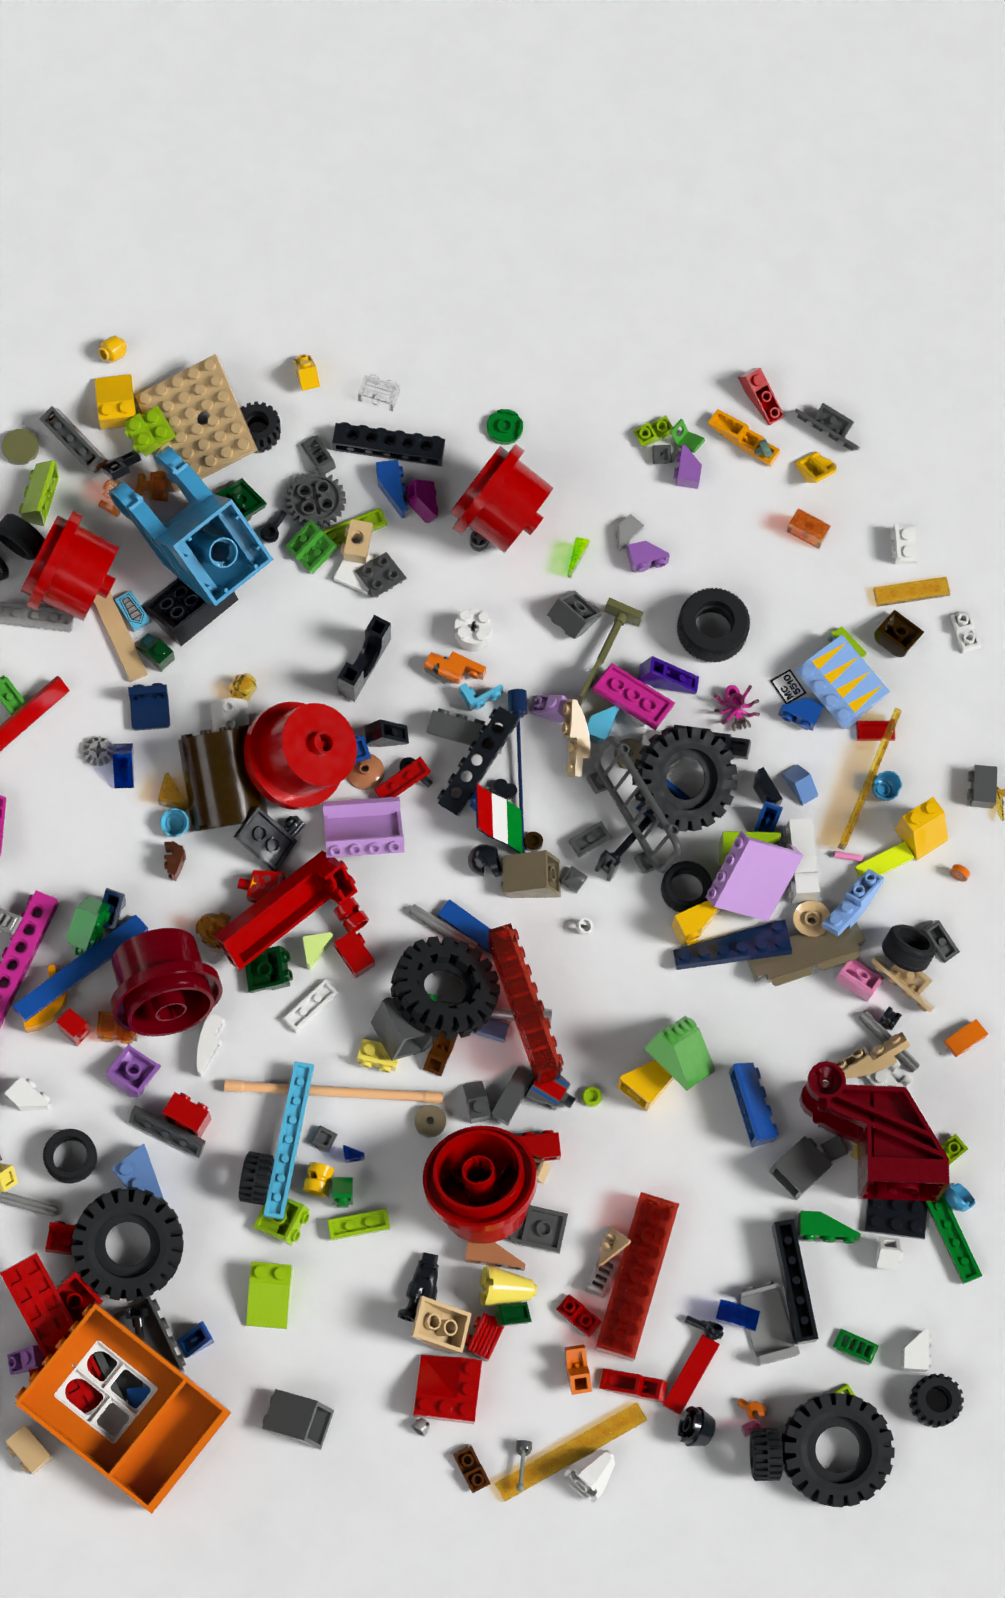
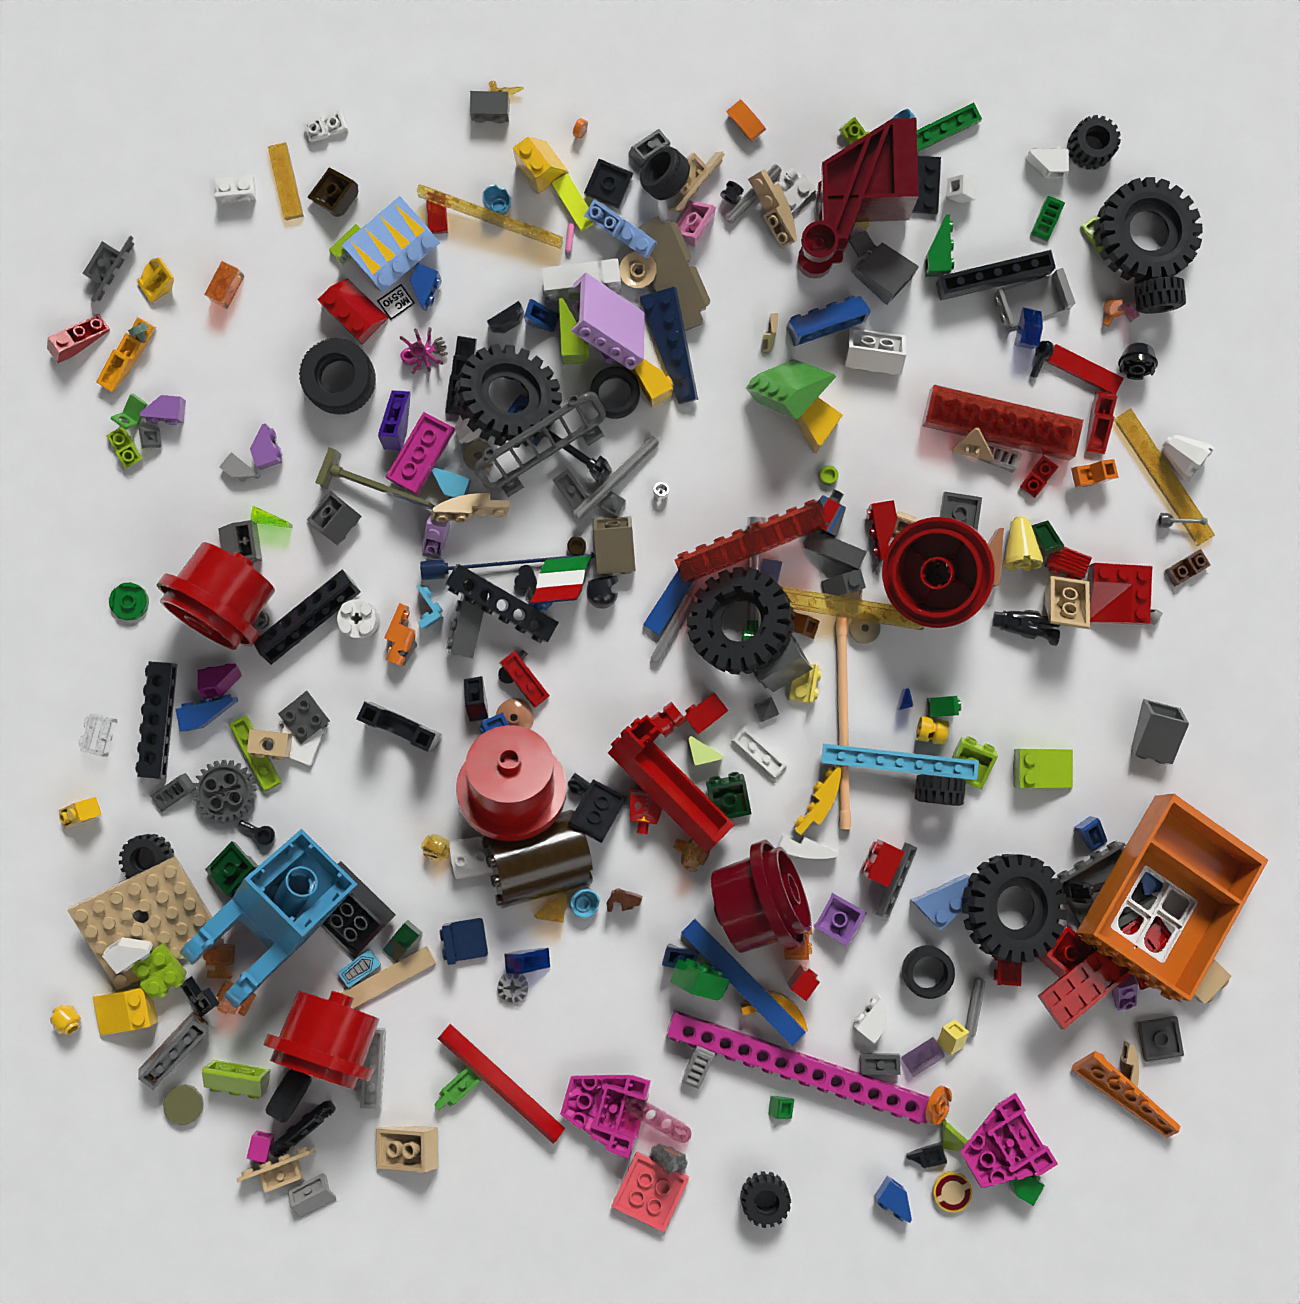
camera: 90 degrees left, 15 degrees up
(170, 401) = (125, 952): none -> white slope
(260, 1066) = (825, 793): none -> yellow slope
(311, 546) = (277, 790): bright green slope -> none
(324, 1138) = (889, 728): dark grey tile -> none
(353, 1015) = (766, 709): none -> dark grey tile
(358, 1224) = (970, 689): lime plate -> none
(363, 827) = (580, 714): lavender panel -> none
(455, 1087) = (848, 608): none -> clear yellow tile
(478, 582) = (306, 617): none -> black brick
(555, 529) = (241, 538): none -> dark grey slope
(600, 883) = (613, 480): none -> light grey axle
(719, 1152) = (875, 351): none -> white slope
(737, 1047) = (768, 338): none -> tan slope
(780, 644) = (352, 309): none -> red slope
(801, 784) = (498, 285): medium blue slope -> none
(902, 897) = (608, 183): none -> black plate

